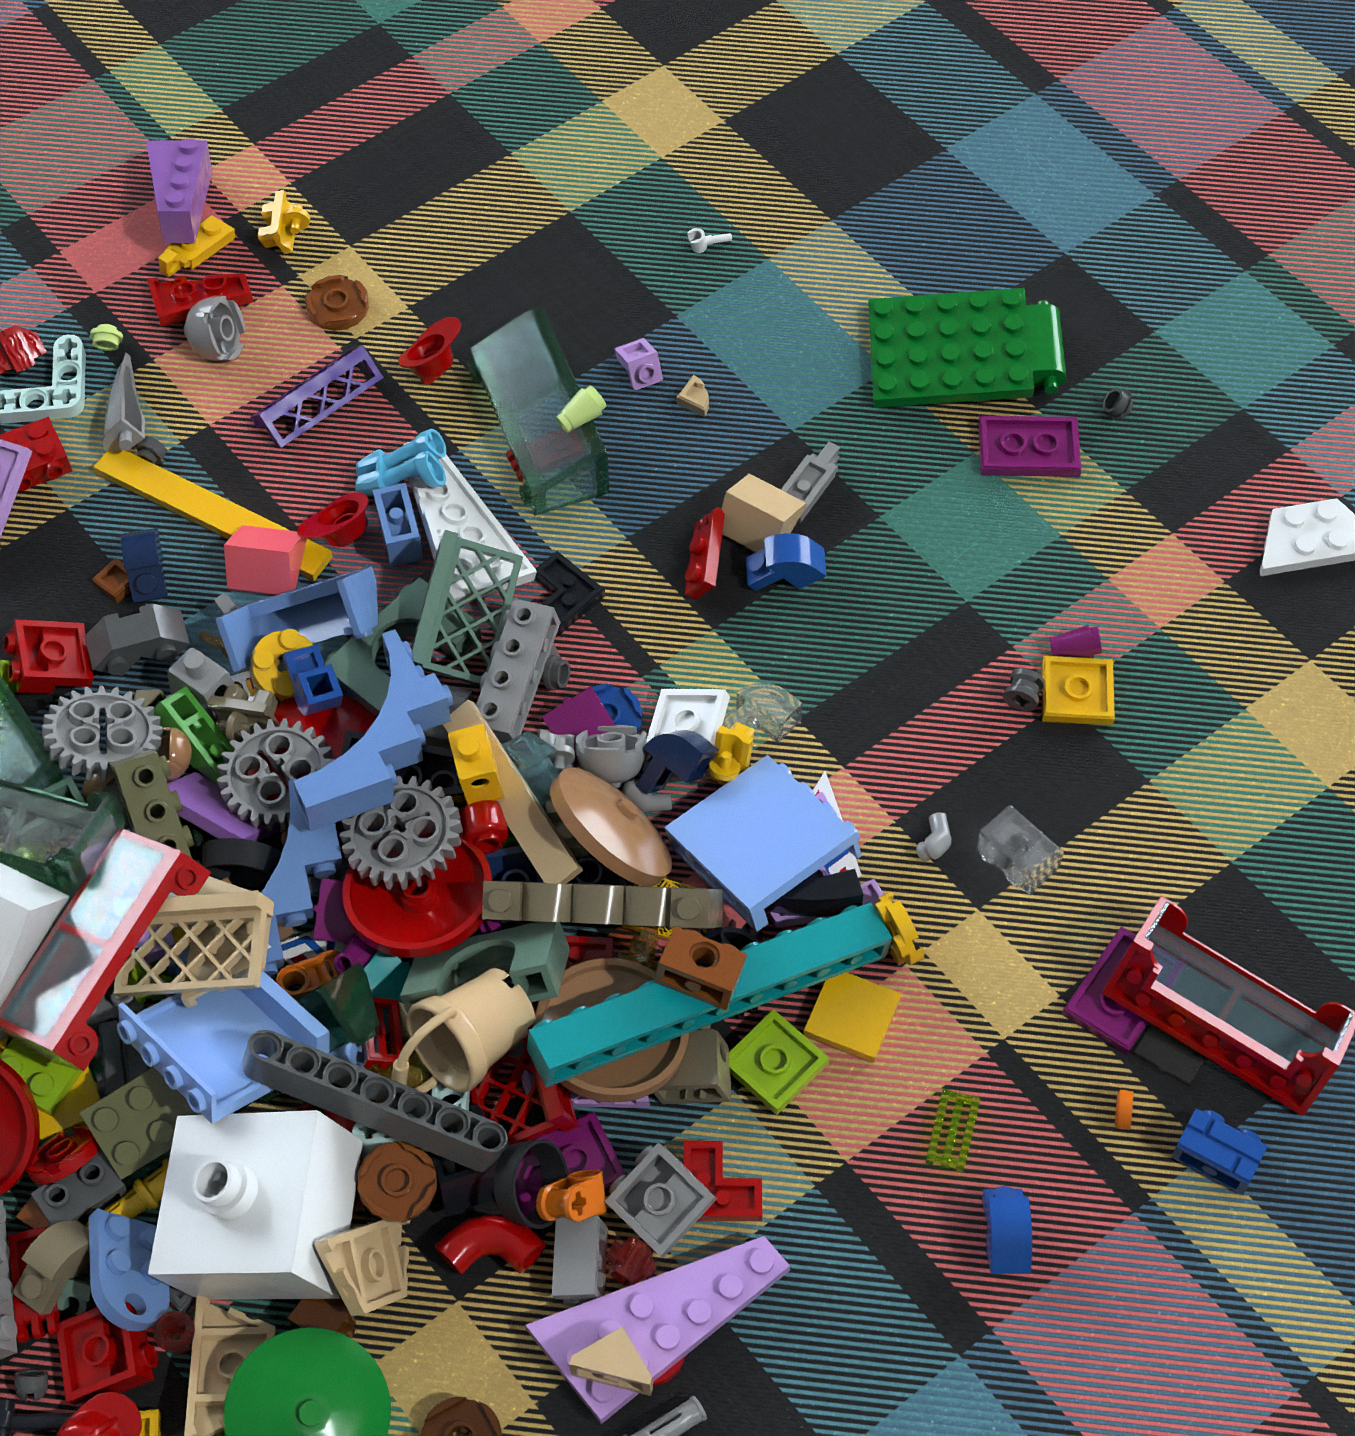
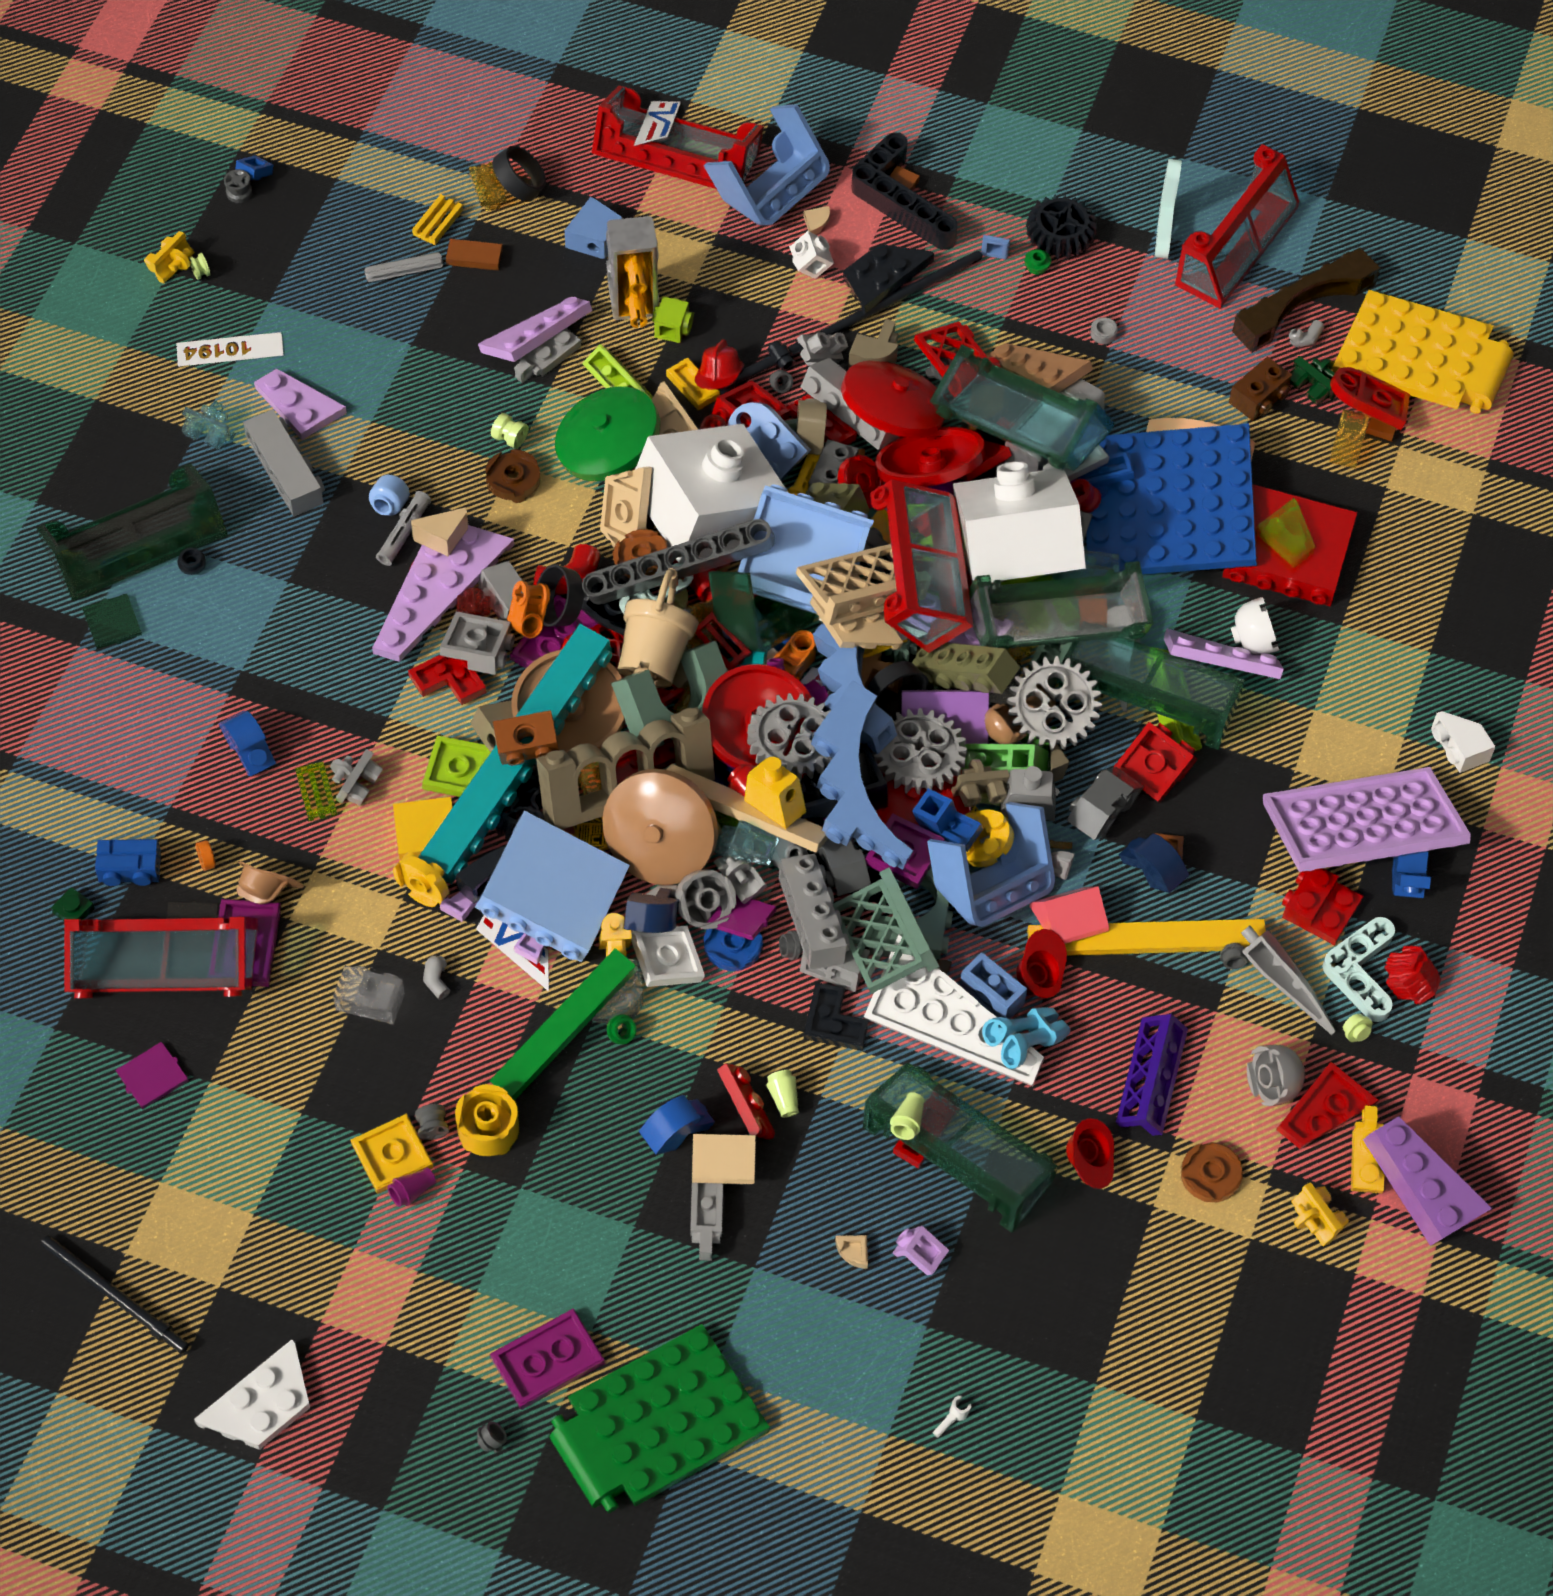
camera: 145 degrees right, 0 degrees up
(364, 683) = (916, 839): none -> magenta tile
(661, 549) = (784, 1092): none -> yellowish green cone
(781, 678) = (627, 1033): none -> green plate
(837, 699) = (564, 1024): none -> green tile
(901, 1115) = (364, 768): none -> light grey hips
(969, 654) = (485, 1136): none -> yellow brick
(1070, 1030) = (262, 885): none -> medium nougat piece
(1292, 898) = (151, 1075): none -> magenta piece
(1306, 1137) = (72, 906): none -> dark green plate

